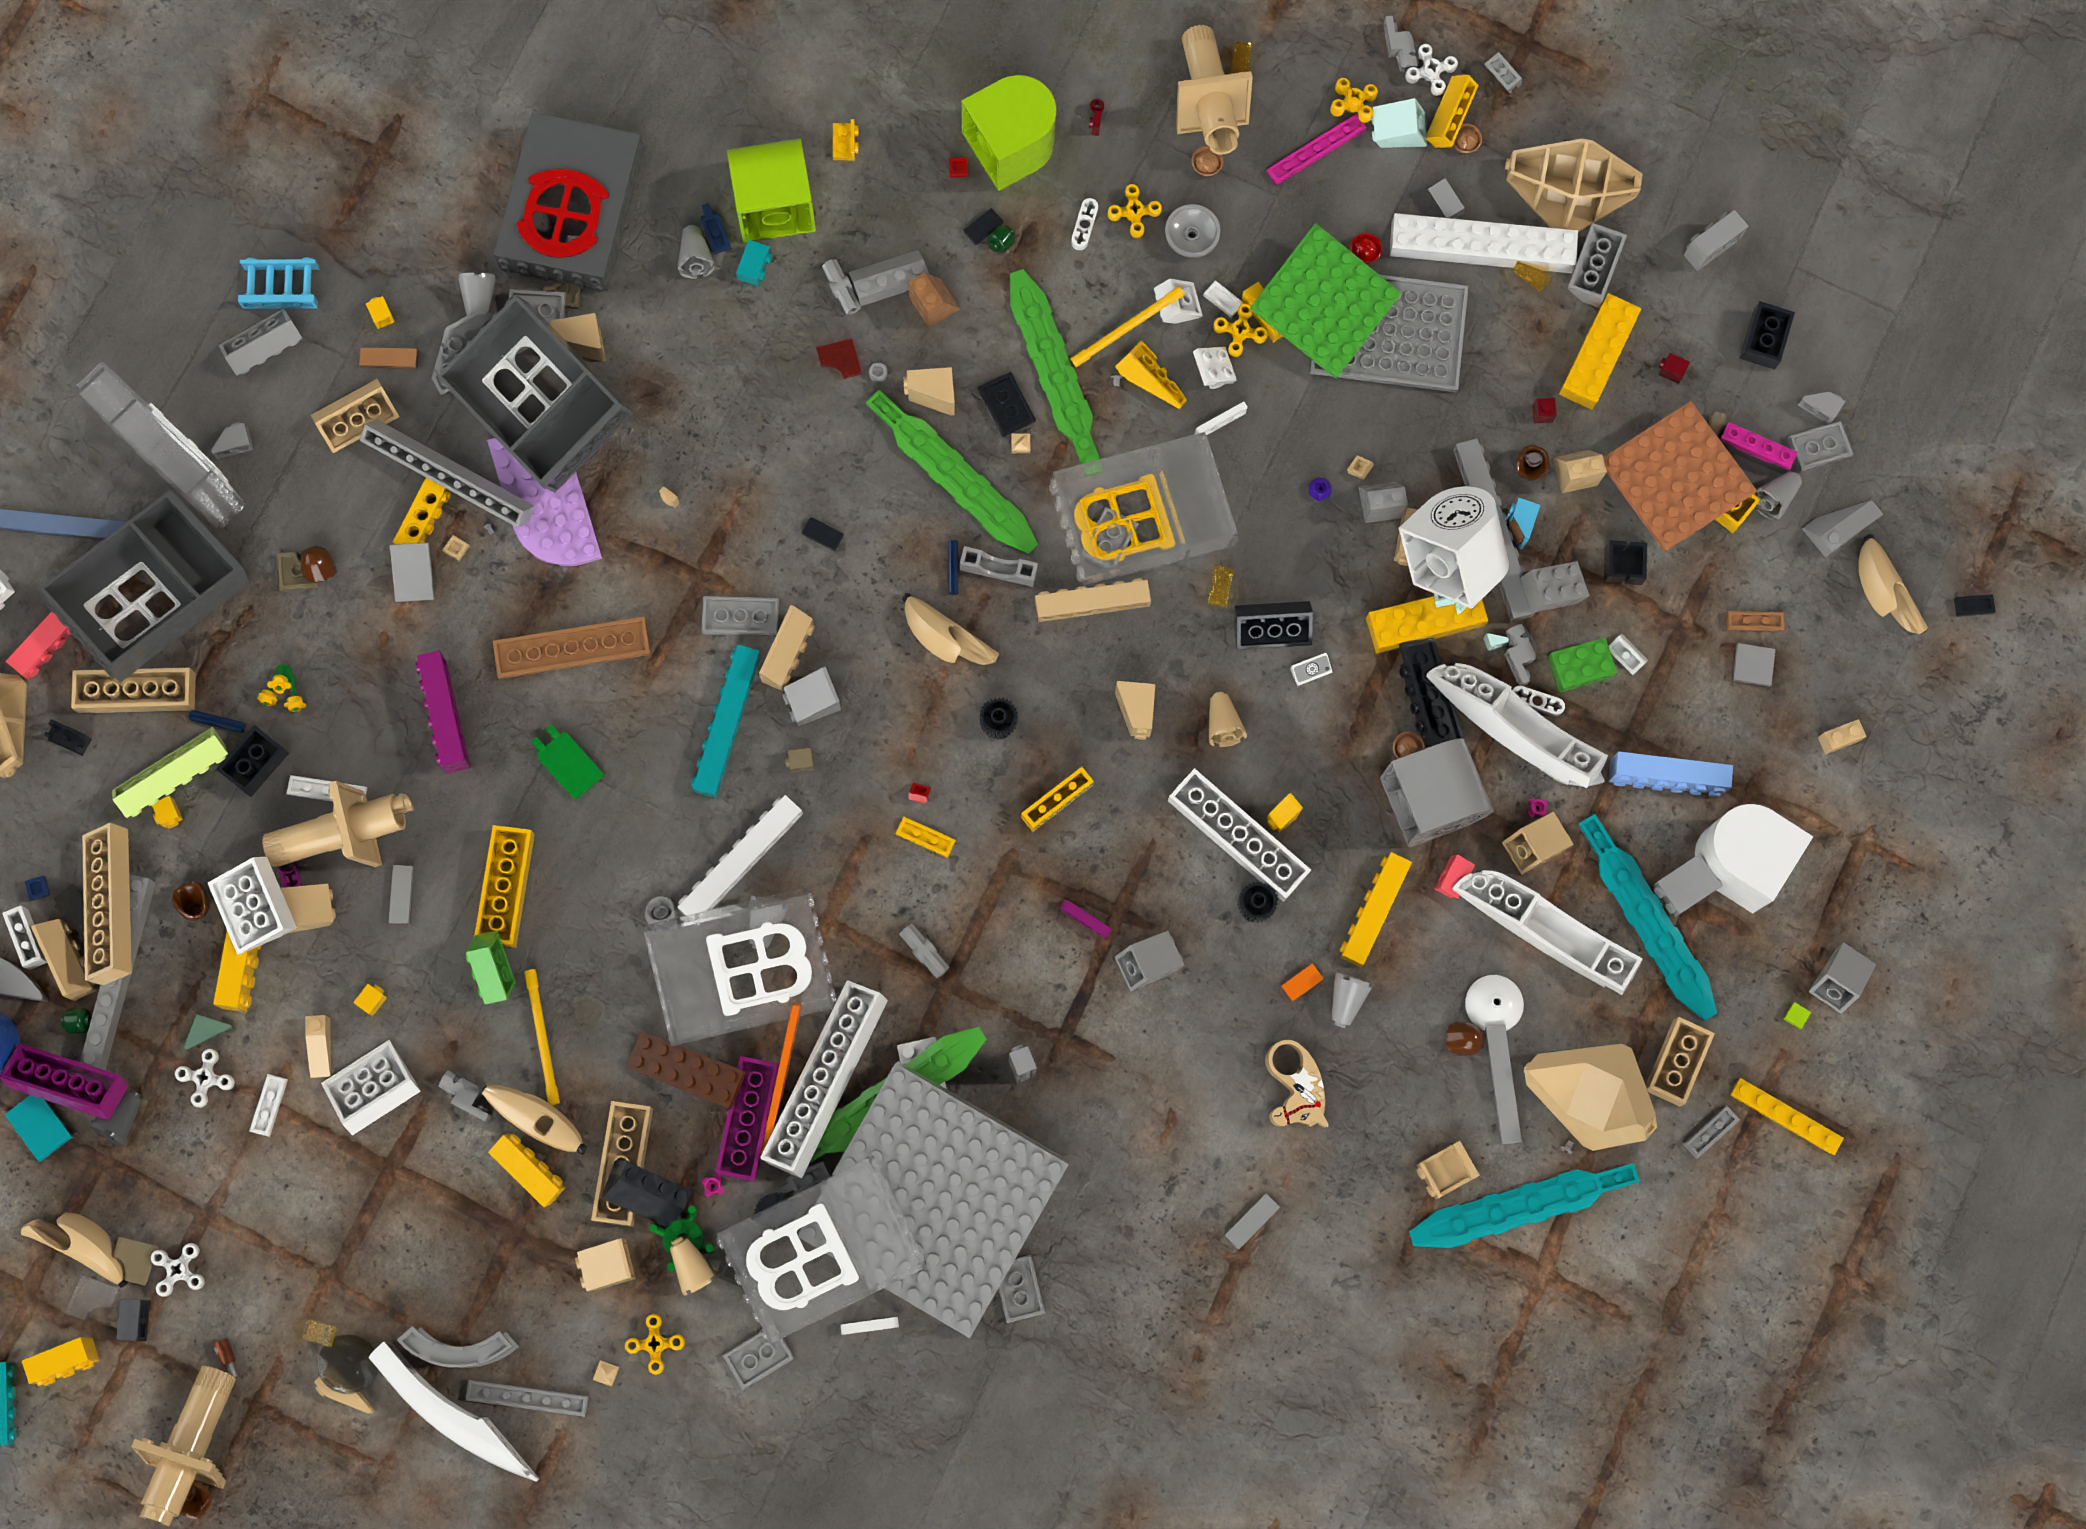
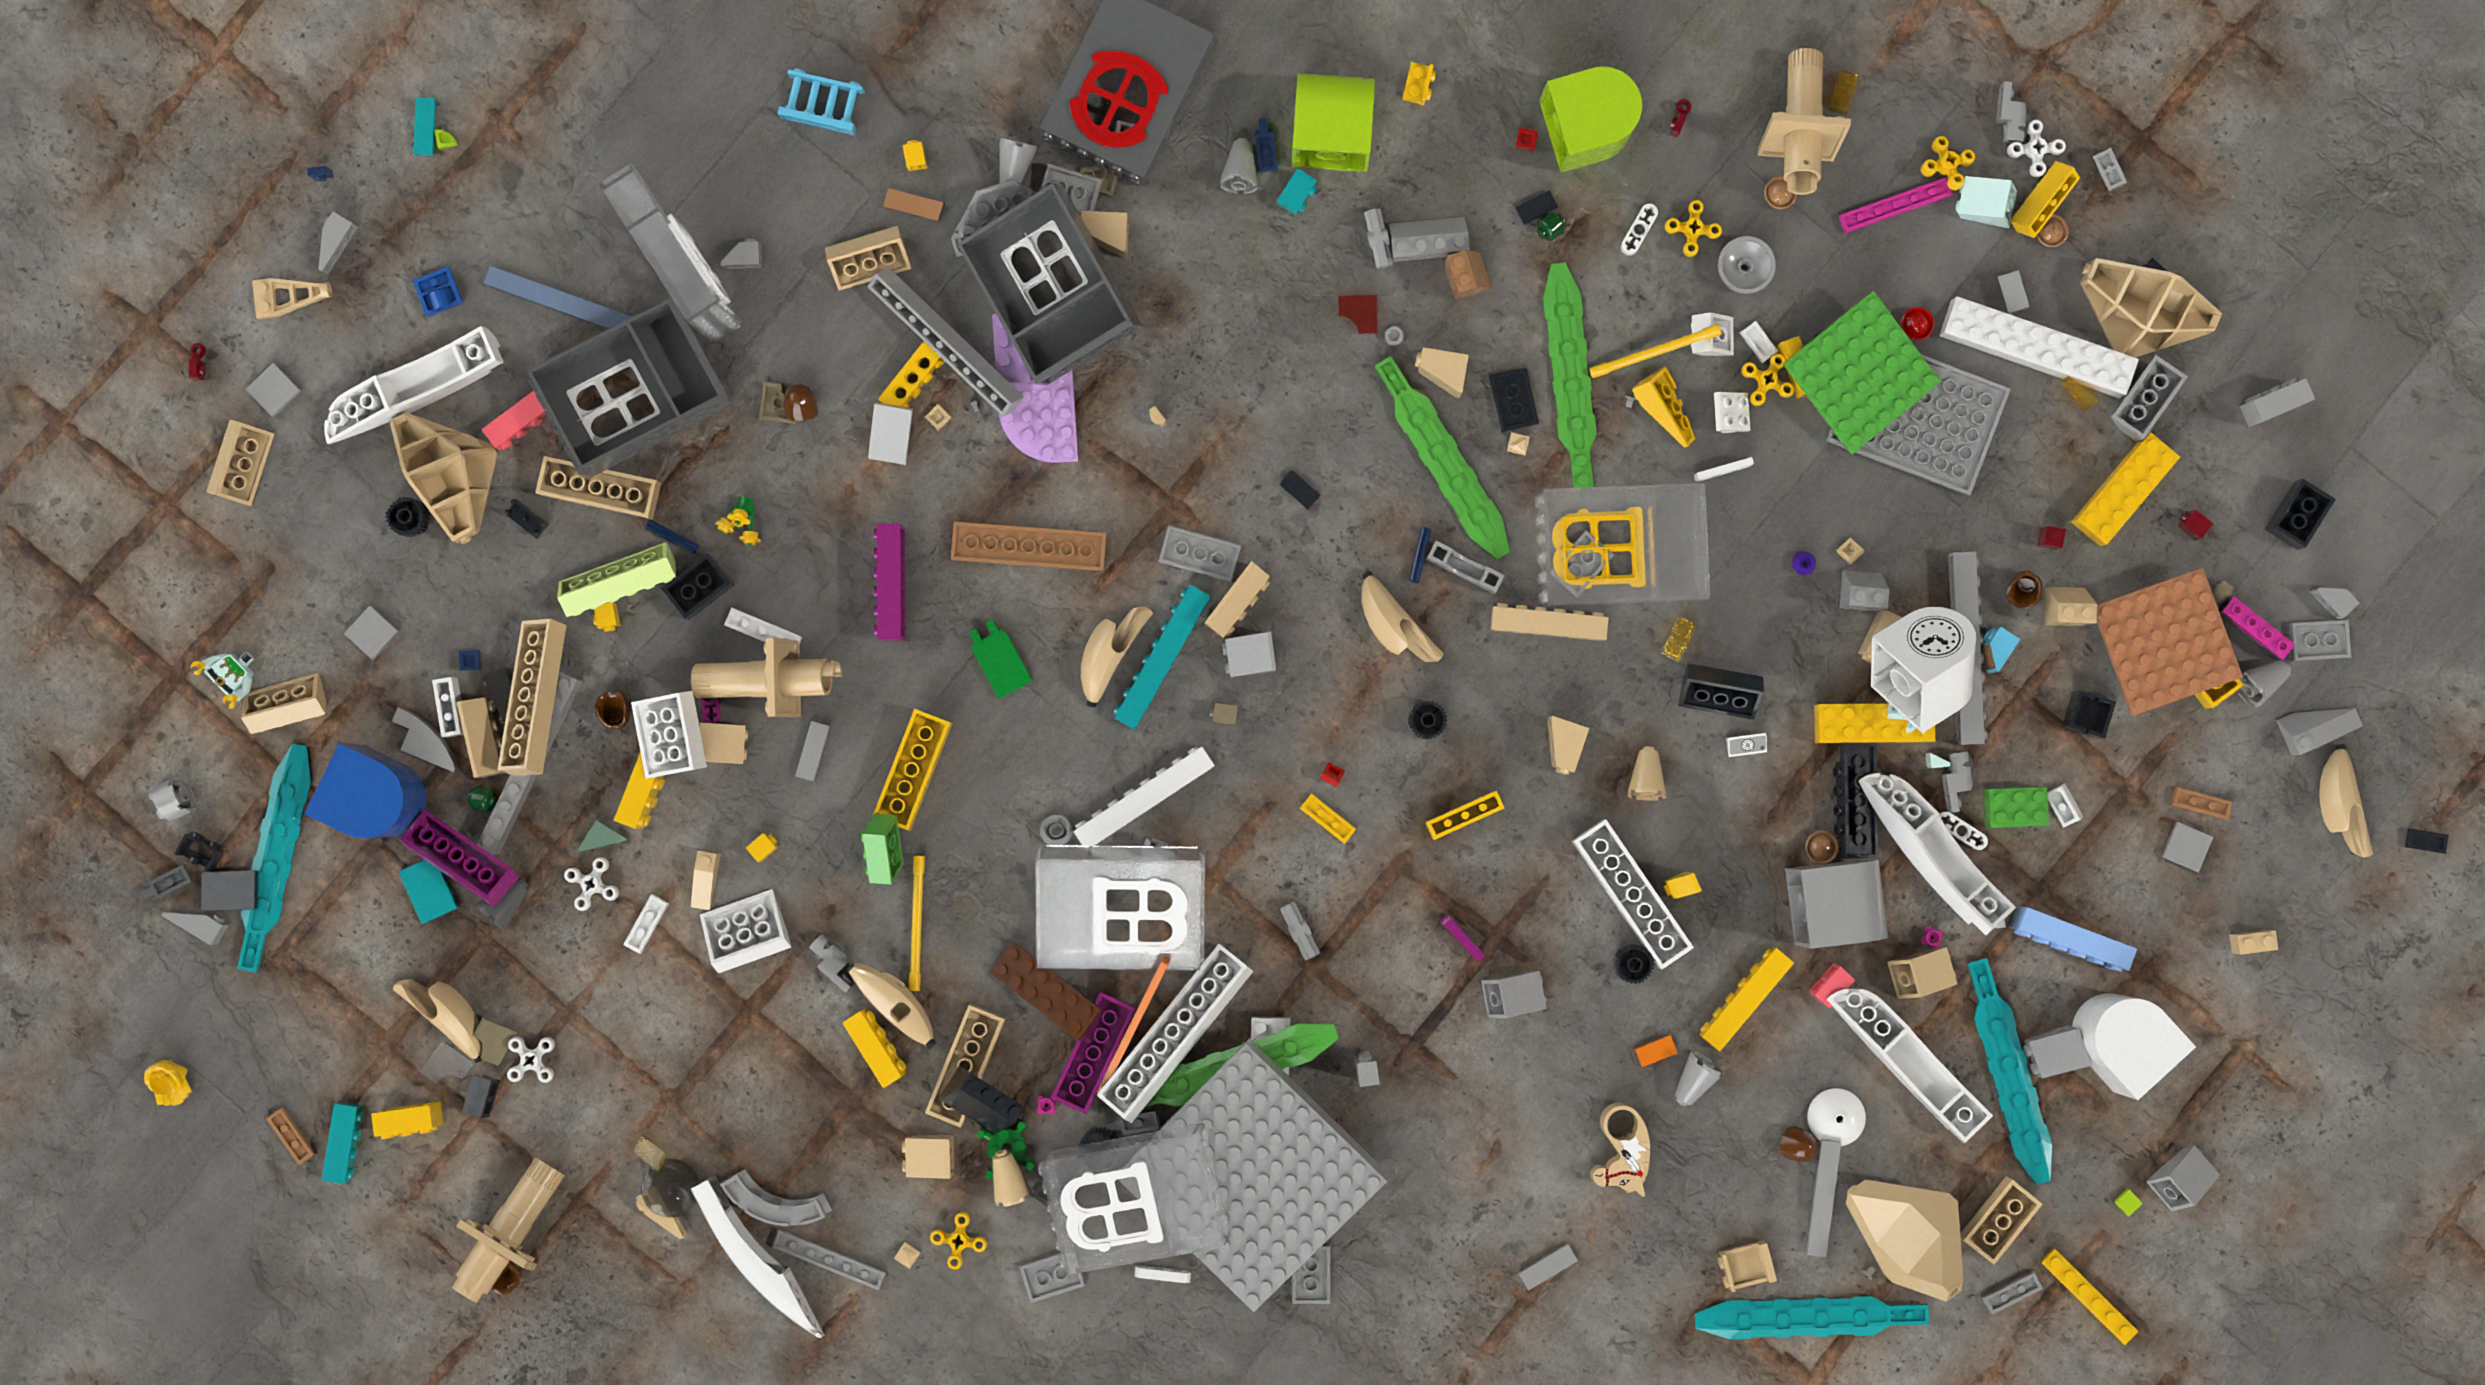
camera: 25 degrees right, 10 degrees up
(226, 1355) = (560, 1151): copper piece -> none
(260, 342) = (790, 158): light grey slope -> none
(668, 729) = (1106, 650): none -> tan piece
(1554, 586) = (2011, 723): light grey brick -> none

